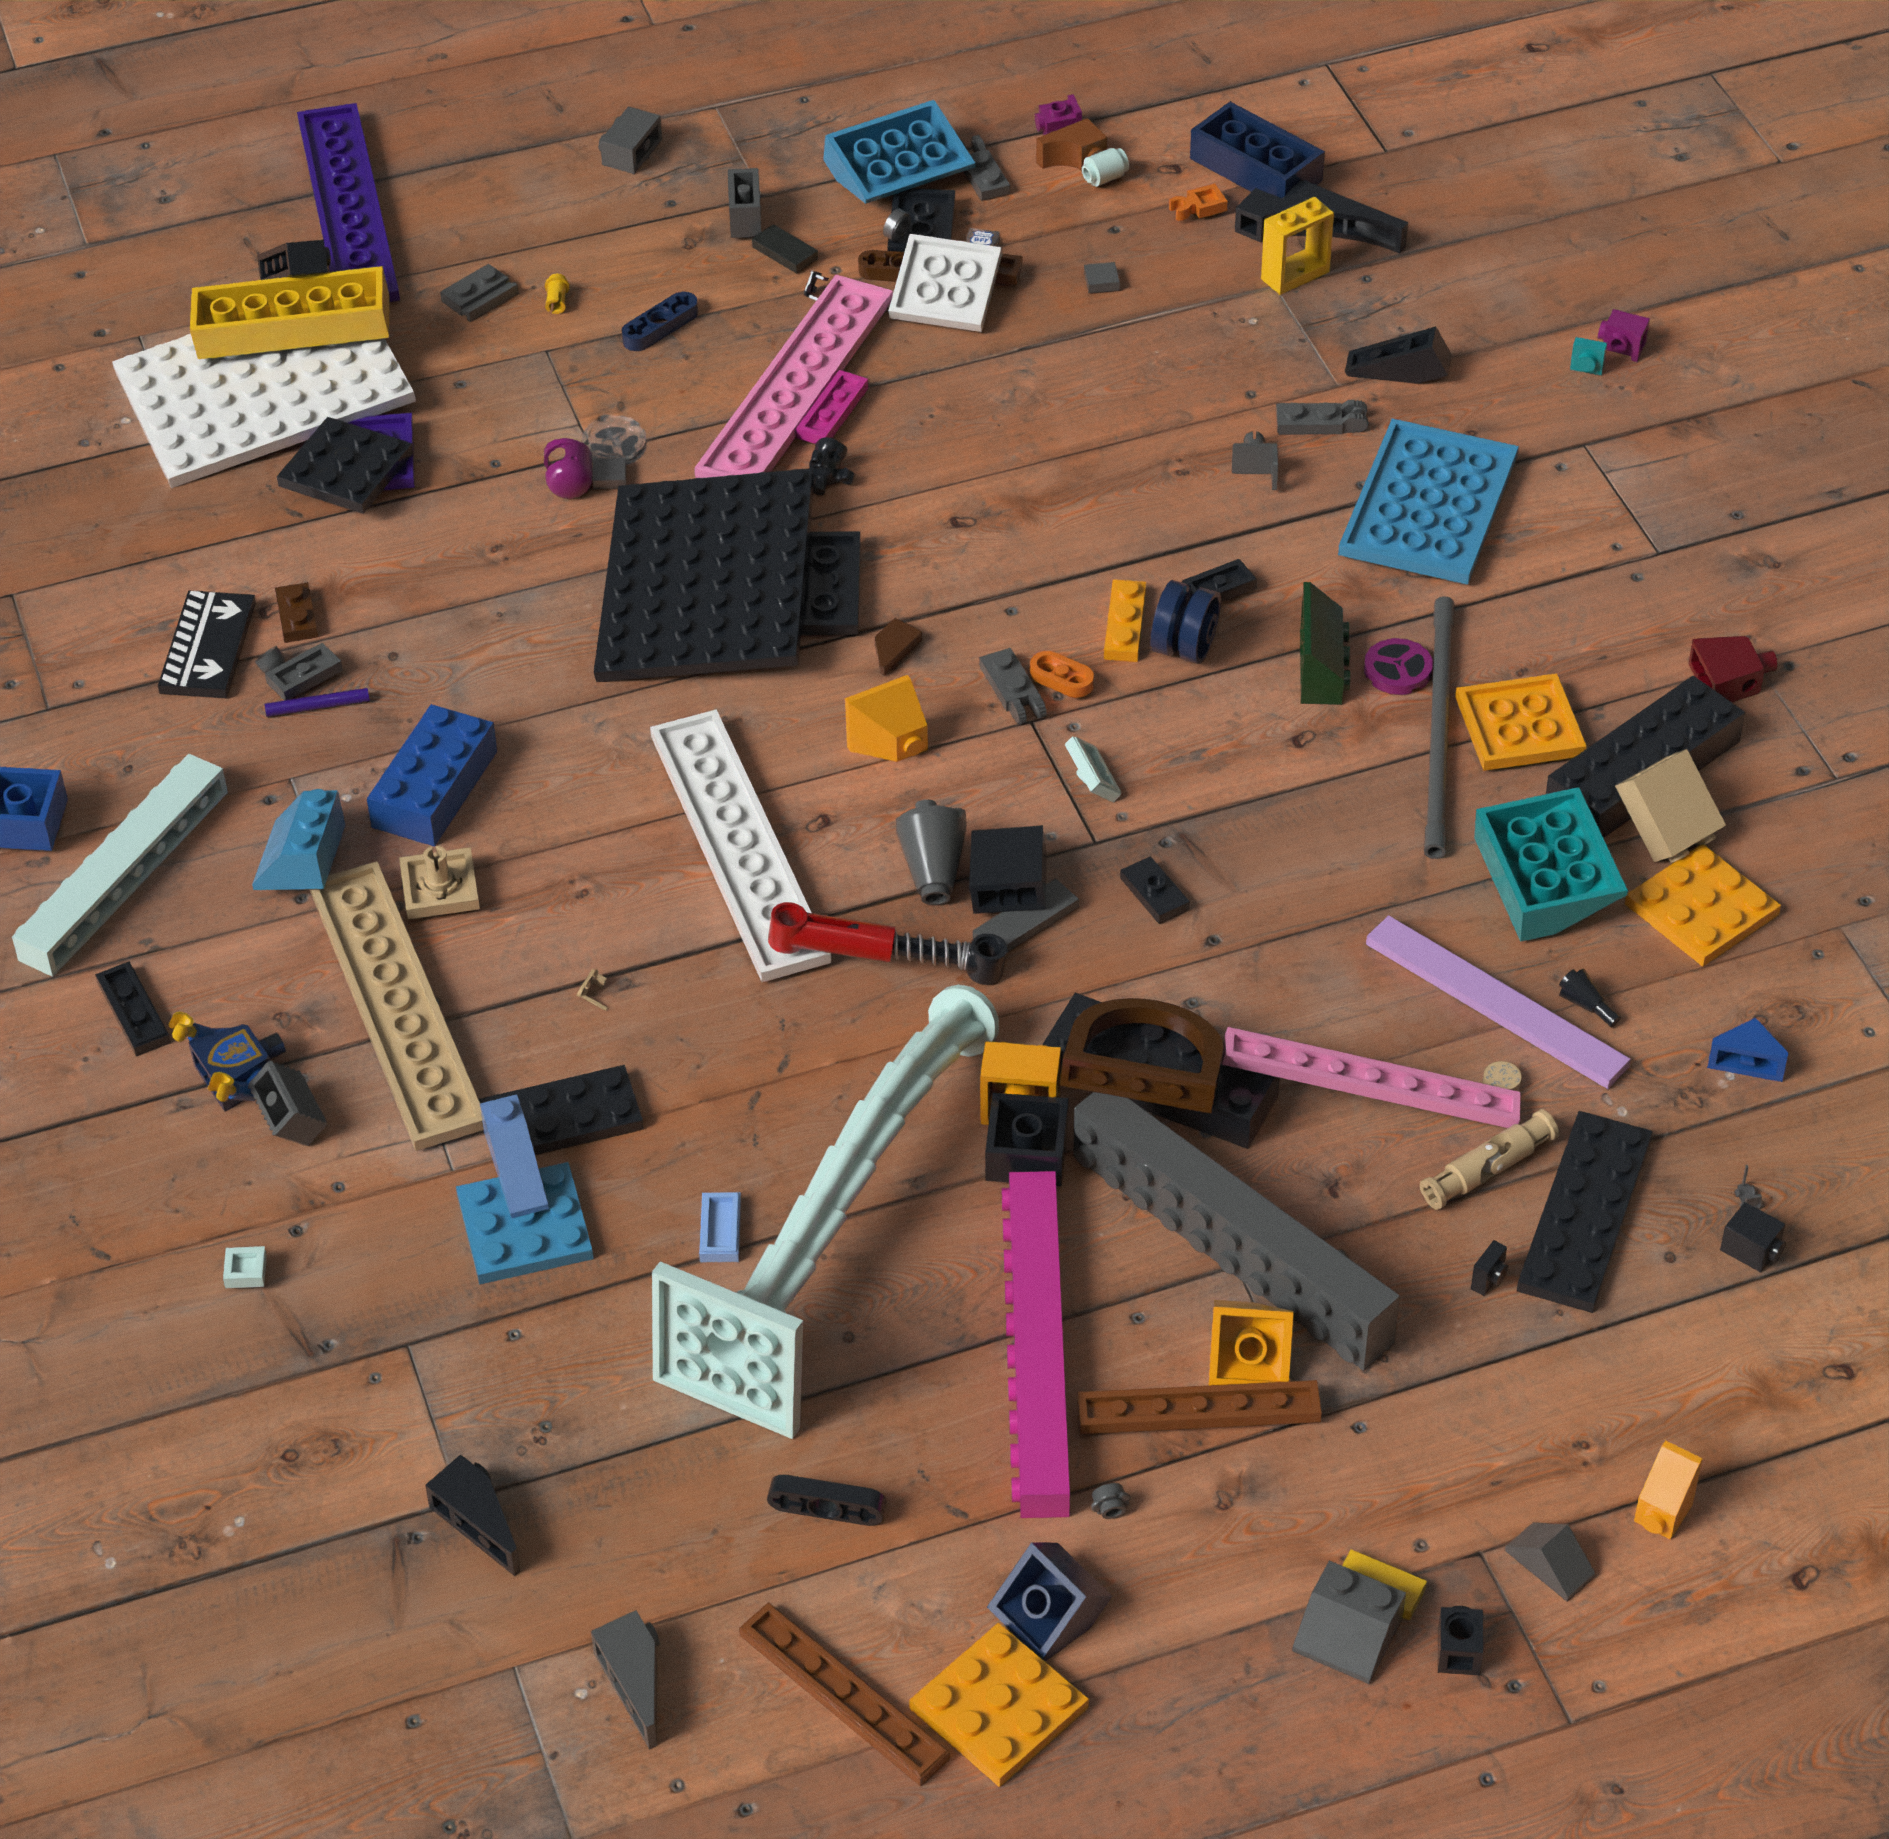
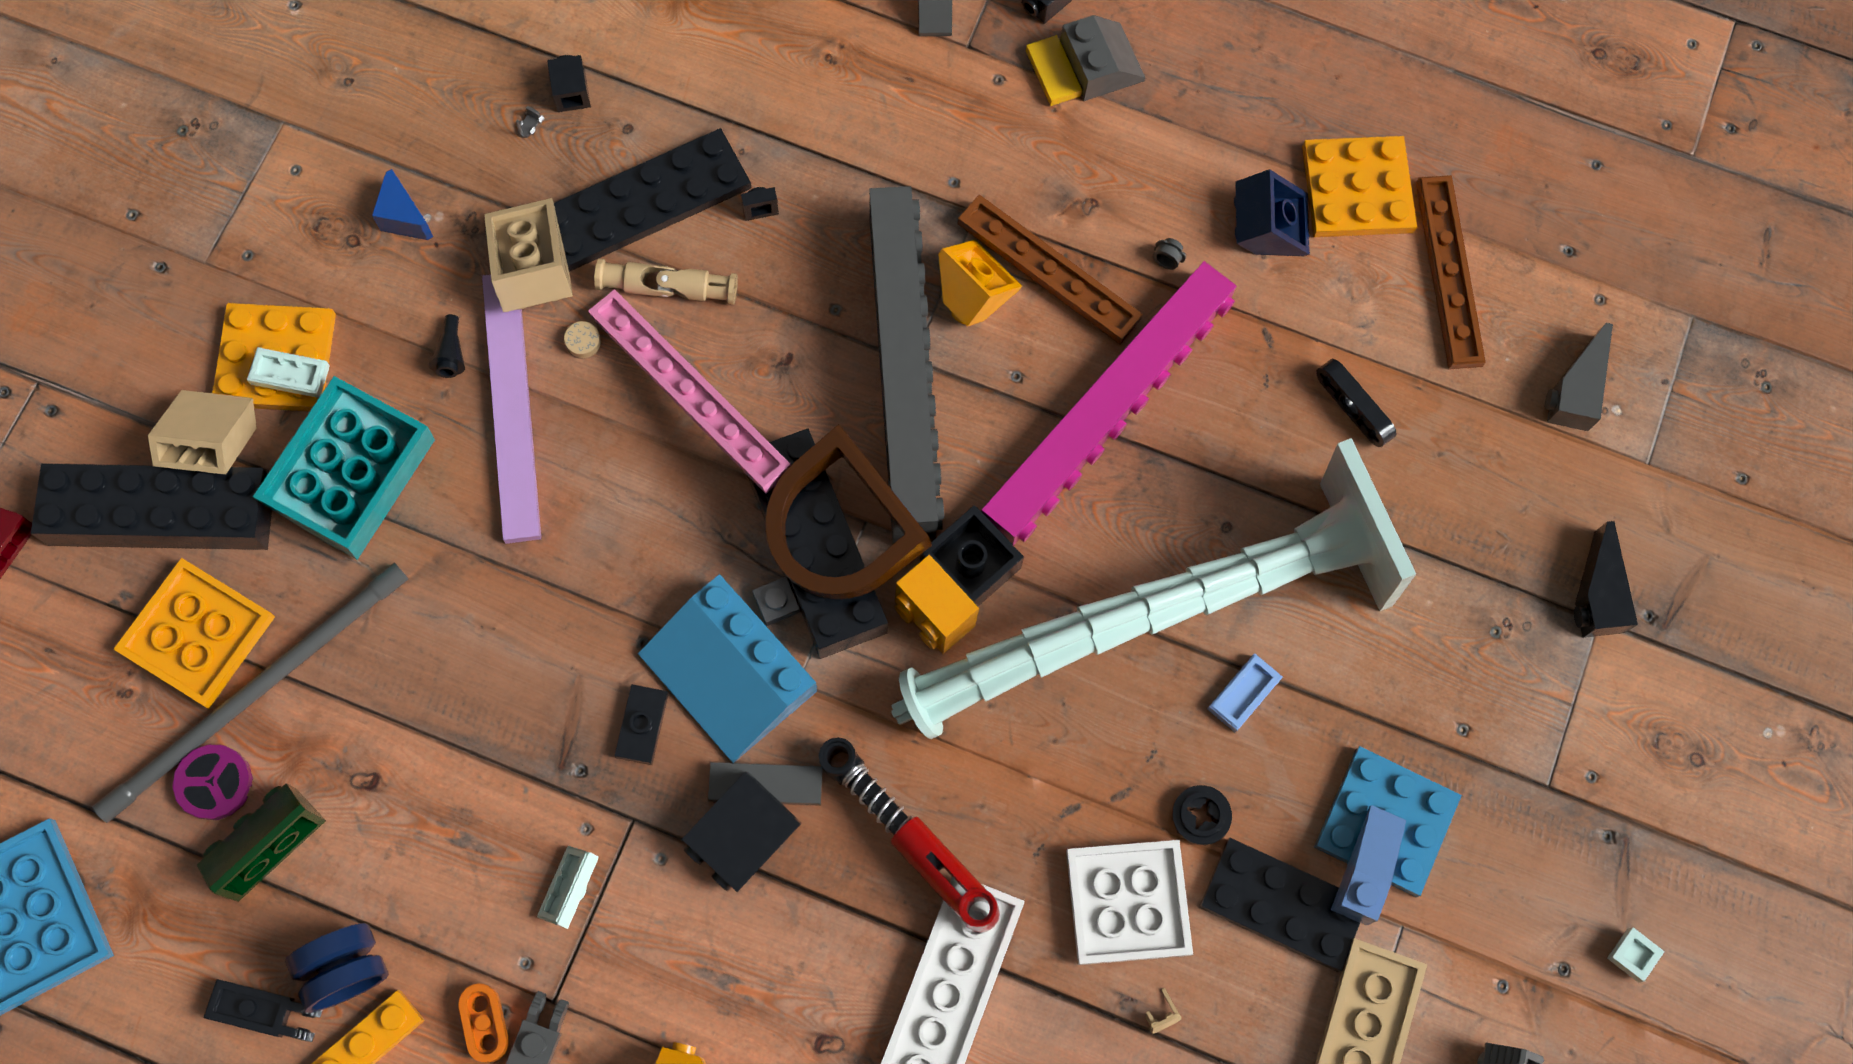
camera: 145 degrees left, 25 degrees up
(682, 1030) = (1129, 902): none -> white plate
(687, 1110) = (1217, 808): none -> black gear
(932, 848) = (781, 905): dark grey cone -> none
(1131, 960) = (727, 669): none -> dark azure slope
(1610, 1079) = (527, 255): none -> tan slope
(1668, 882) = (288, 372): none -> light aqua plate

